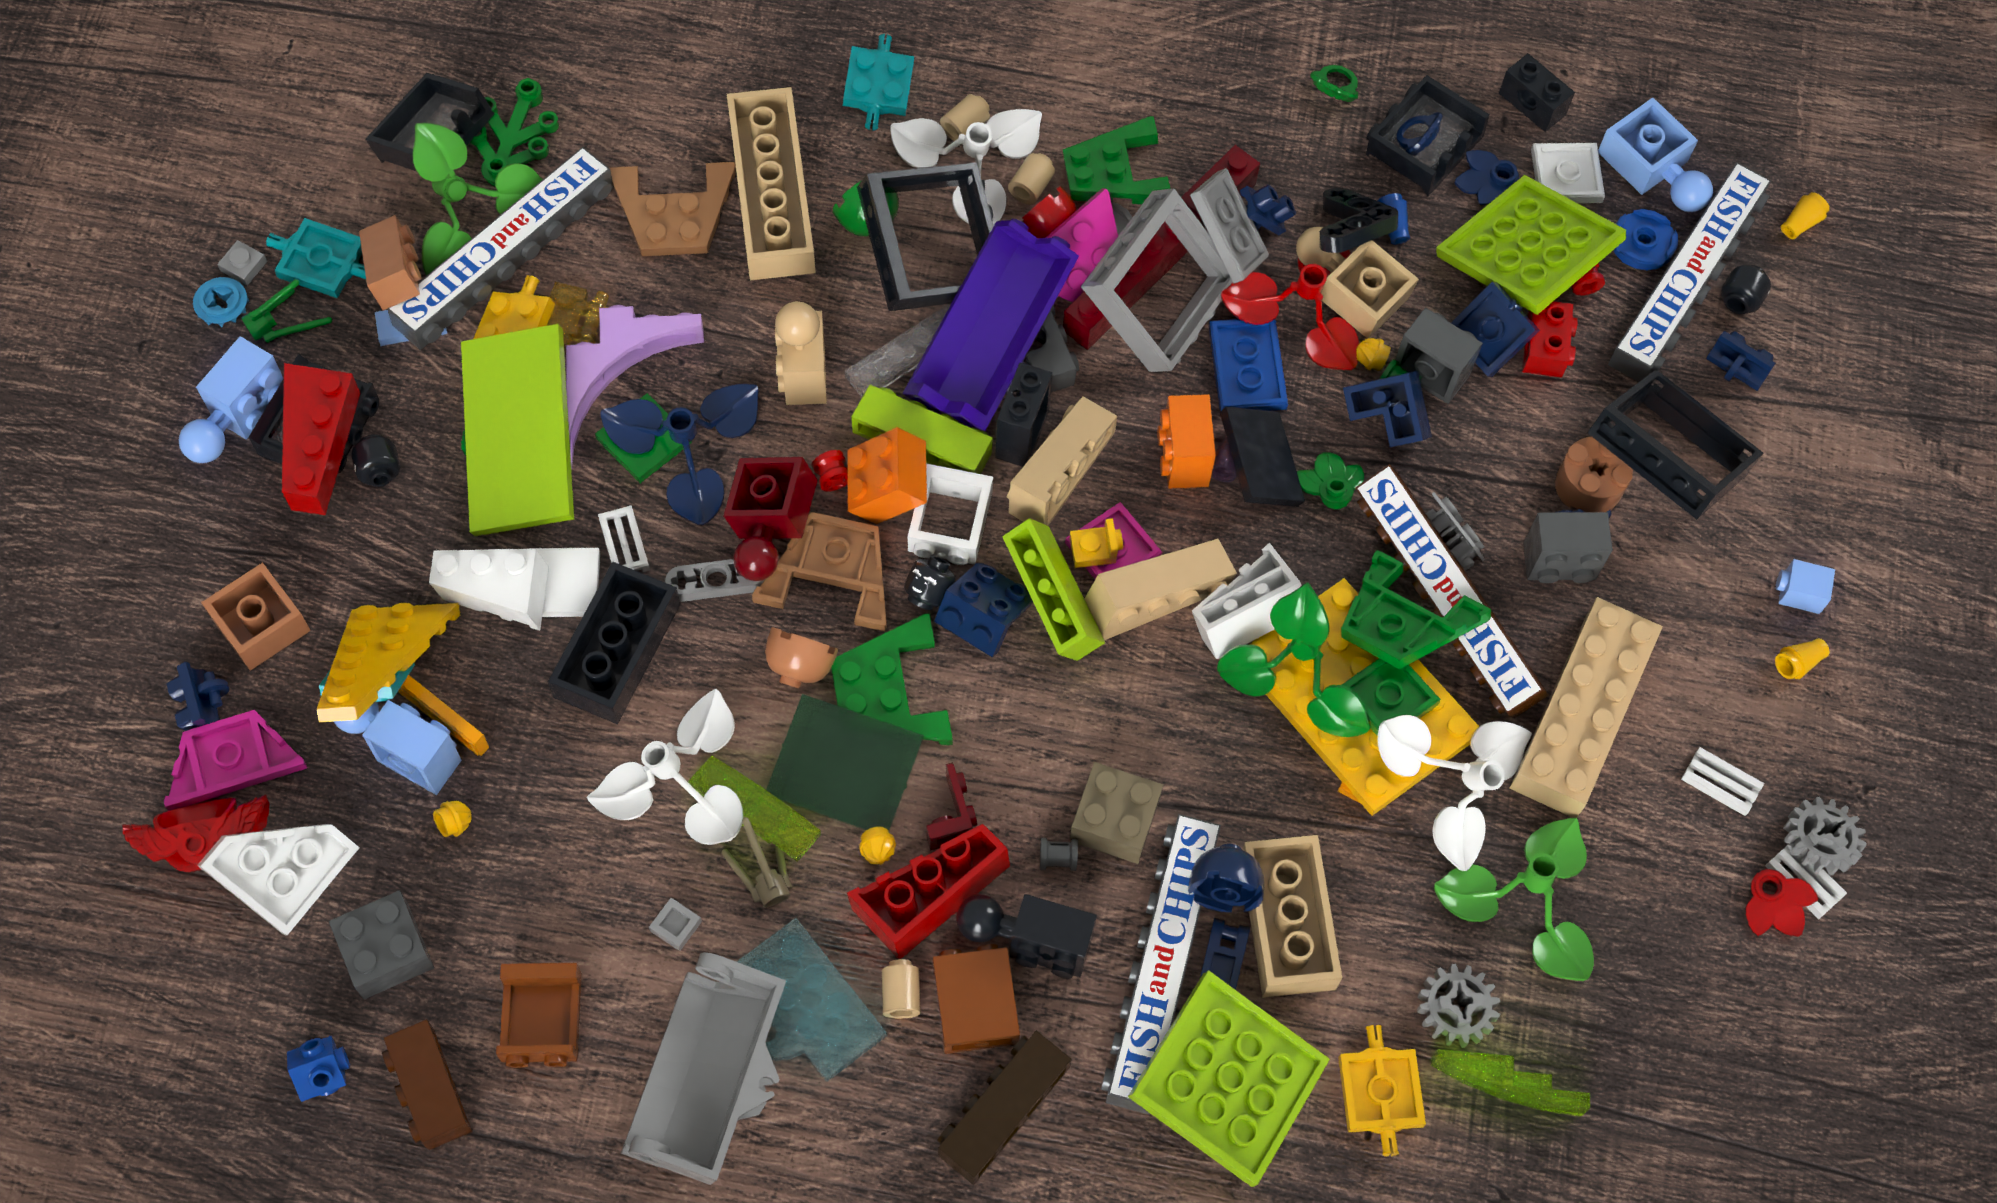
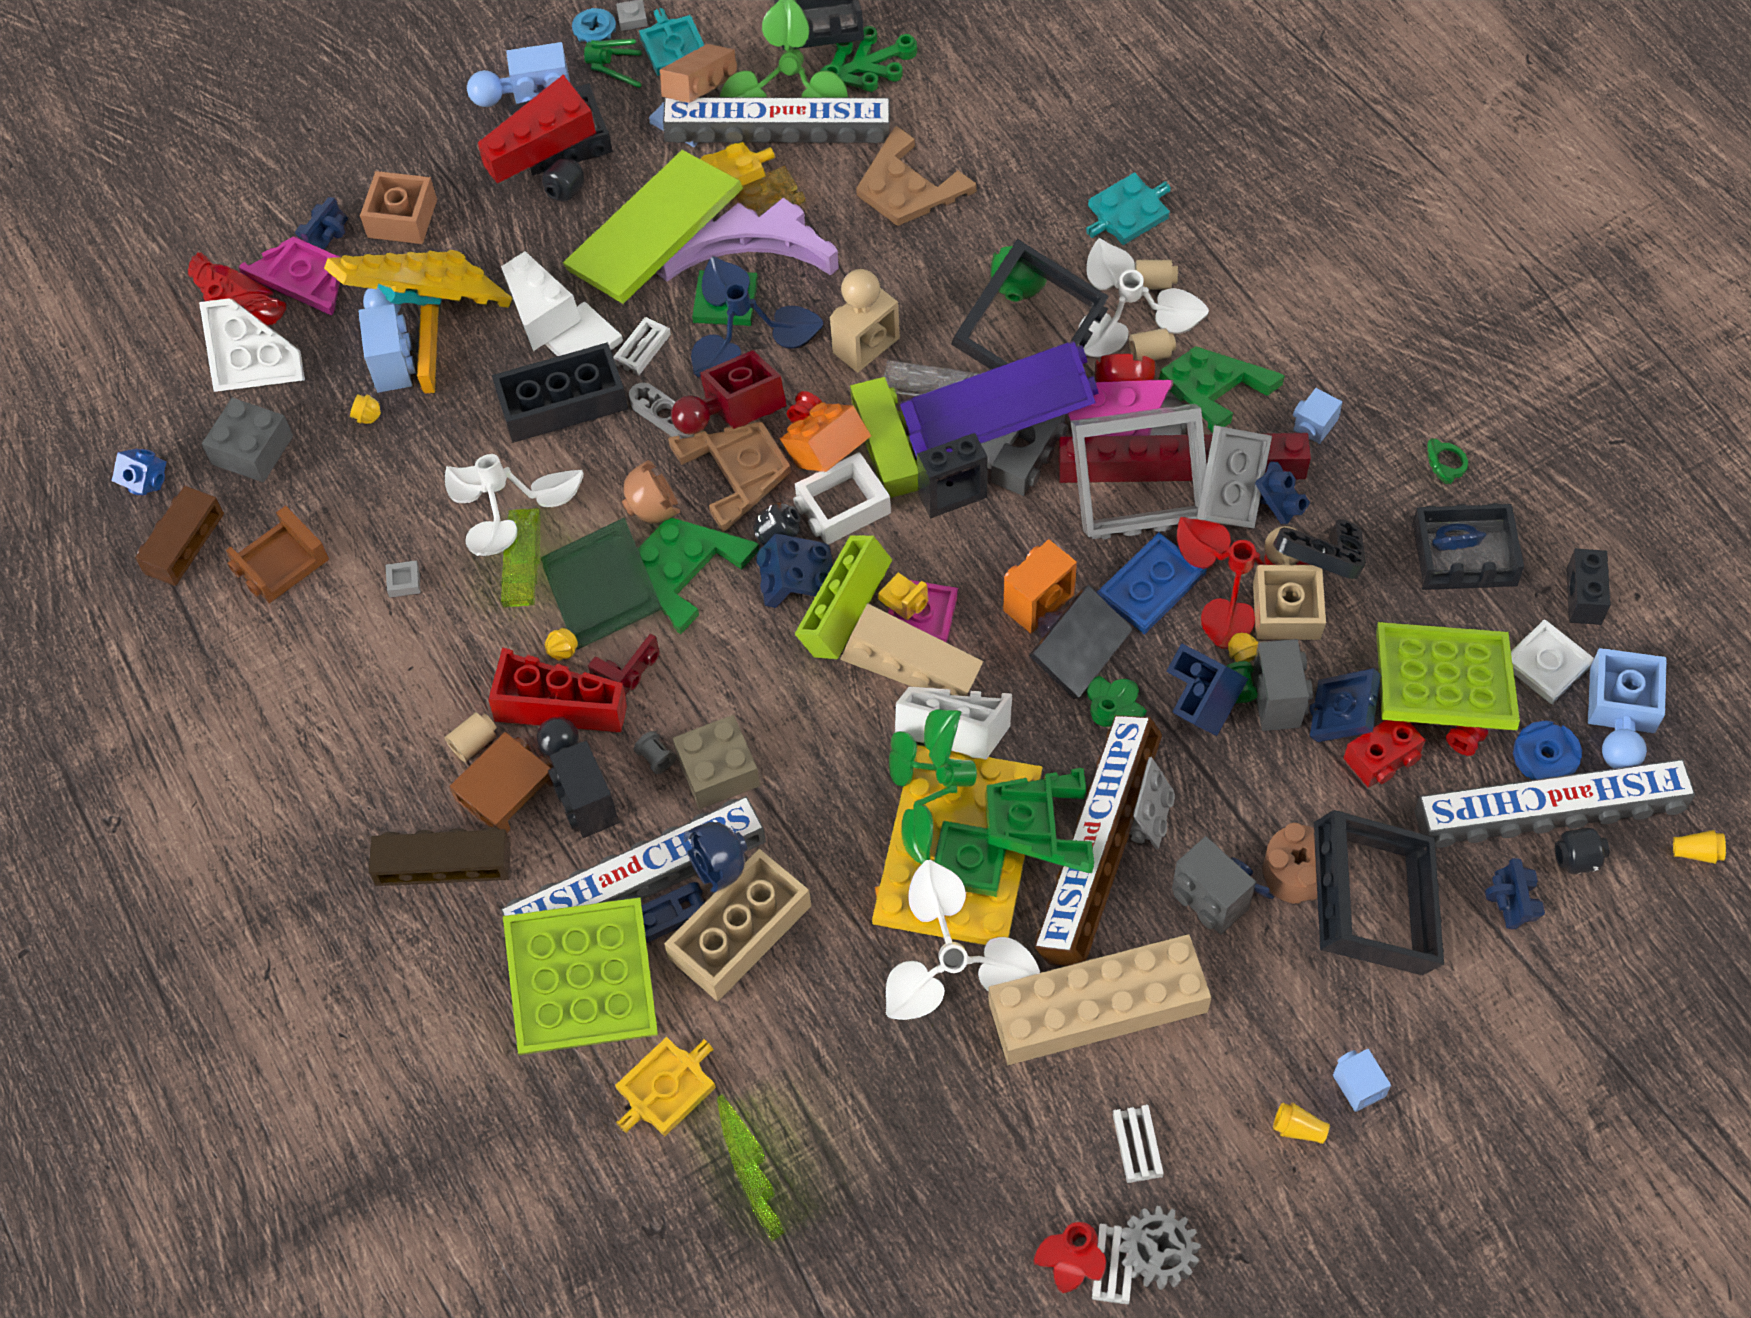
camera: 55 degrees right, 5 degrees down
(707, 1069) = (307, 672): light grey piece -> none
(770, 886) = (476, 607): dark tan plant -> none
(771, 184) = (976, 211): tan brick -> none
(817, 1006) = (413, 691): clear light blue plate -> none
(1061, 462) = (945, 528): tan wedge -> none
(1214, 127) = (1317, 415): none -> light blue brick
(1395, 200) = (1374, 577): blue cone -> none
(1474, 1003) = (766, 1076): light grey gear -> none
(1485, 176) = (1476, 611): dark blue plate -> none
(1551, 853) = (965, 1067): bright green plant -> none

